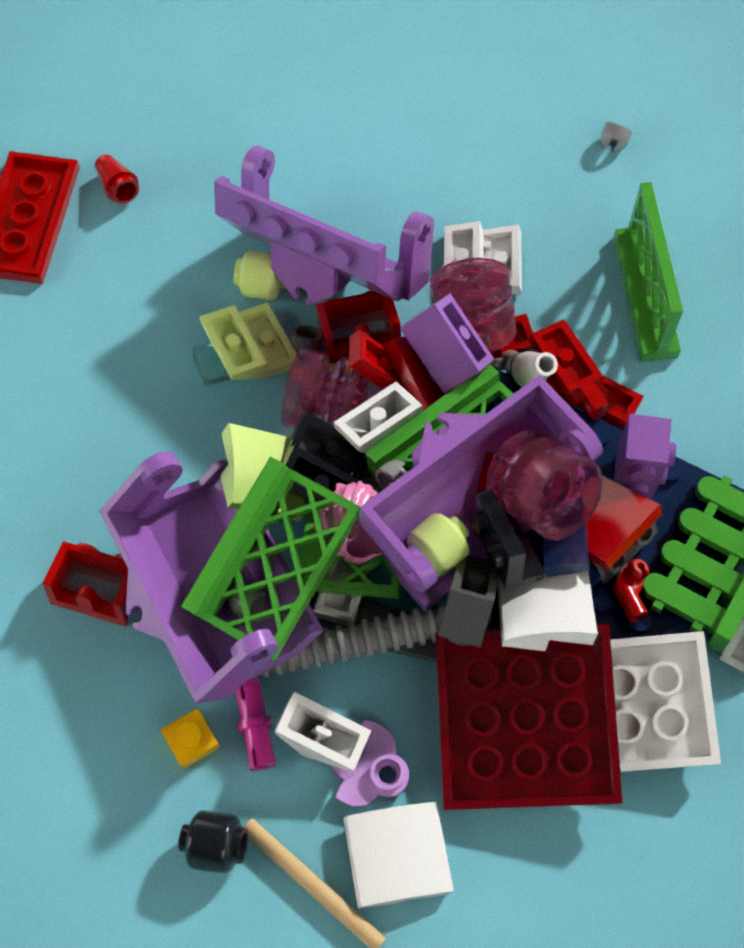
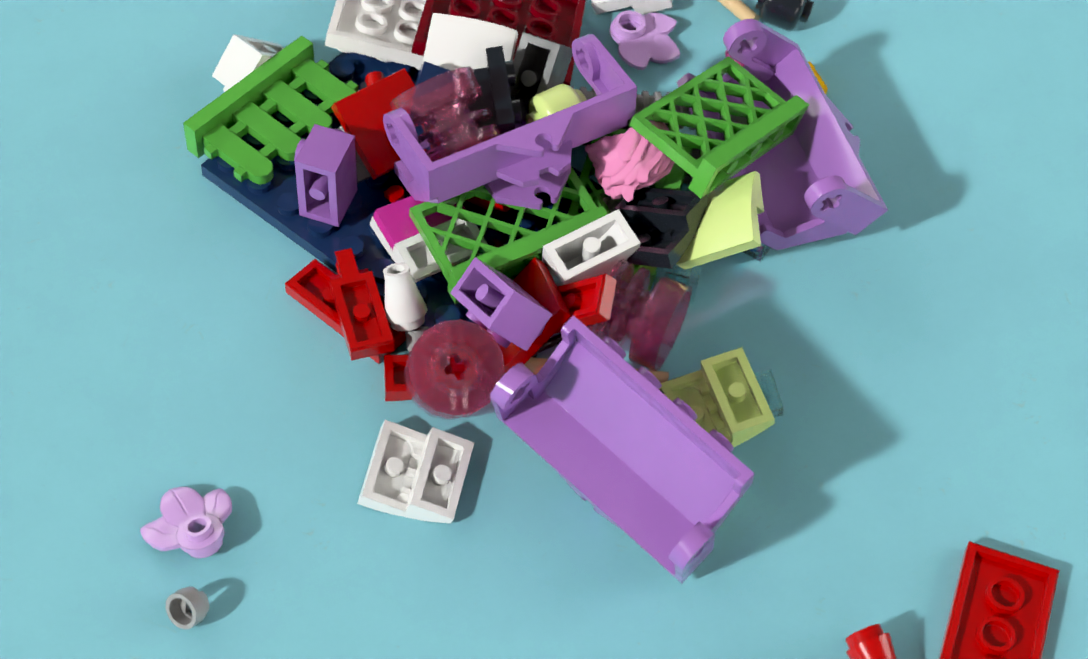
camera: 175 degrees left, 10 degrees down
(88, 582) = (905, 215): red window -> none
(321, 733) = (681, 47): white slope -> none
(389, 473) = (585, 187): light grey hinge -> none
(626, 193) = (189, 522): none -> lavender plate
(649, 279) = (232, 389): bright green fence -> none

